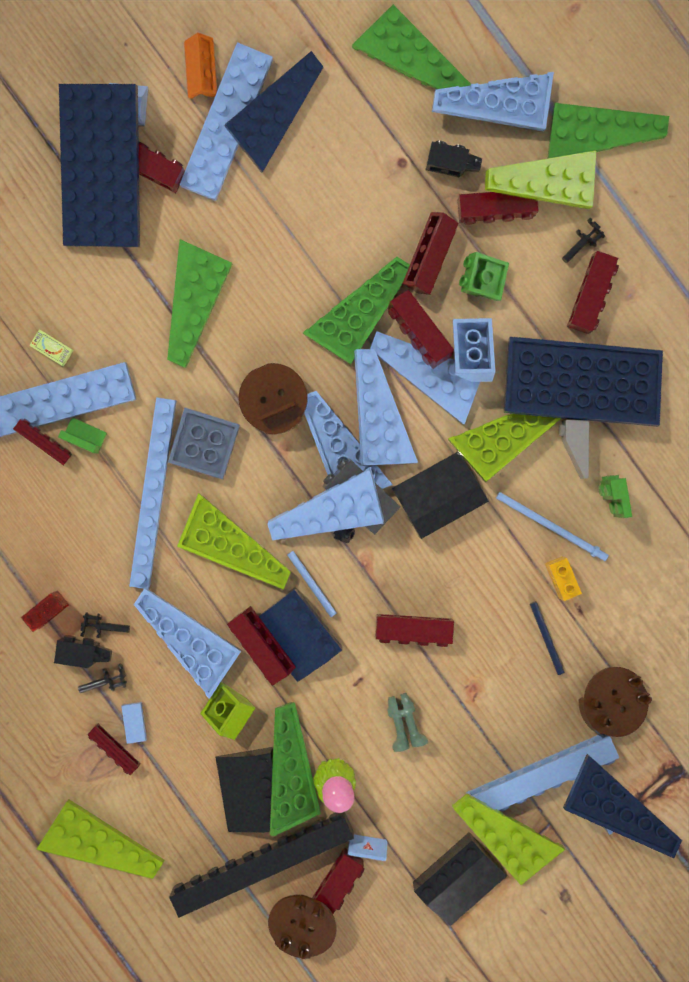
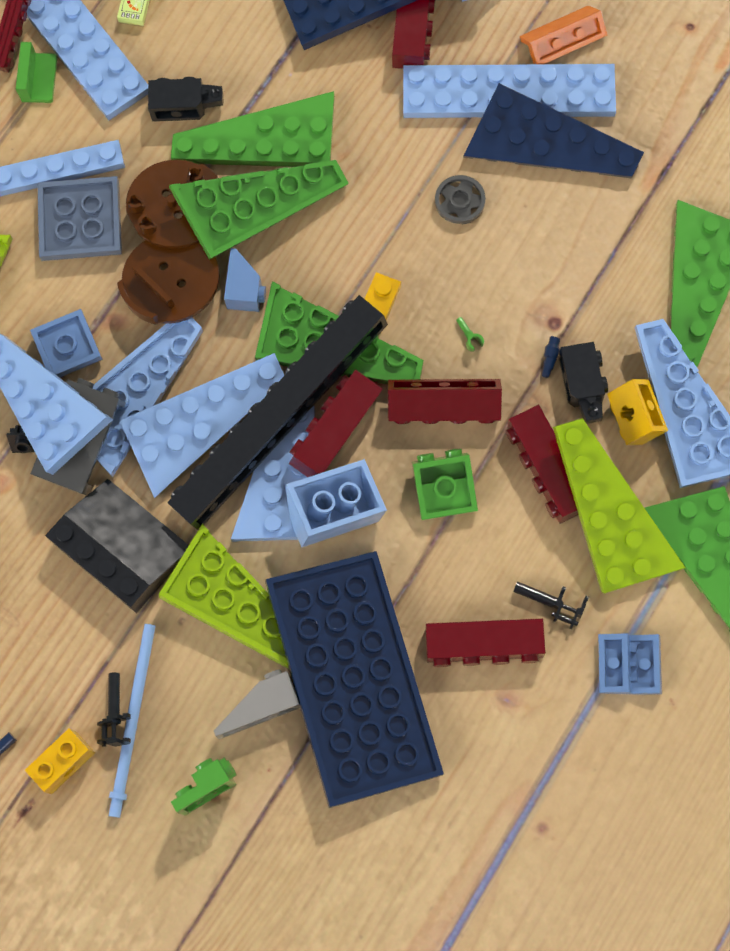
camera: 75 degrees right, 15 degrees down
(143, 343) = (181, 98): none -> black hinge
(220, 360) = (153, 213): none -> reddish brown piece
(244, 330) = (243, 205): none -> bright green wing
(290, 483) = (66, 344): none -> medium blue plate
(292, 187) = (460, 199): none -> dark grey wheel
(296, 352) = (243, 285): none -> medium blue slope
(342, 270) = (383, 293): none -> yellow plate
(389, 220) = (469, 335): none -> bright green hand
(397, 360) = (277, 412): none -> black brick
(423, 173) = (551, 354): none -> dark blue piece
(496, 130) = (637, 412): none -> yellow brick
(545, 536) = (114, 717): none -> black piece
(640, 210) = (630, 664): none -> medium blue slope

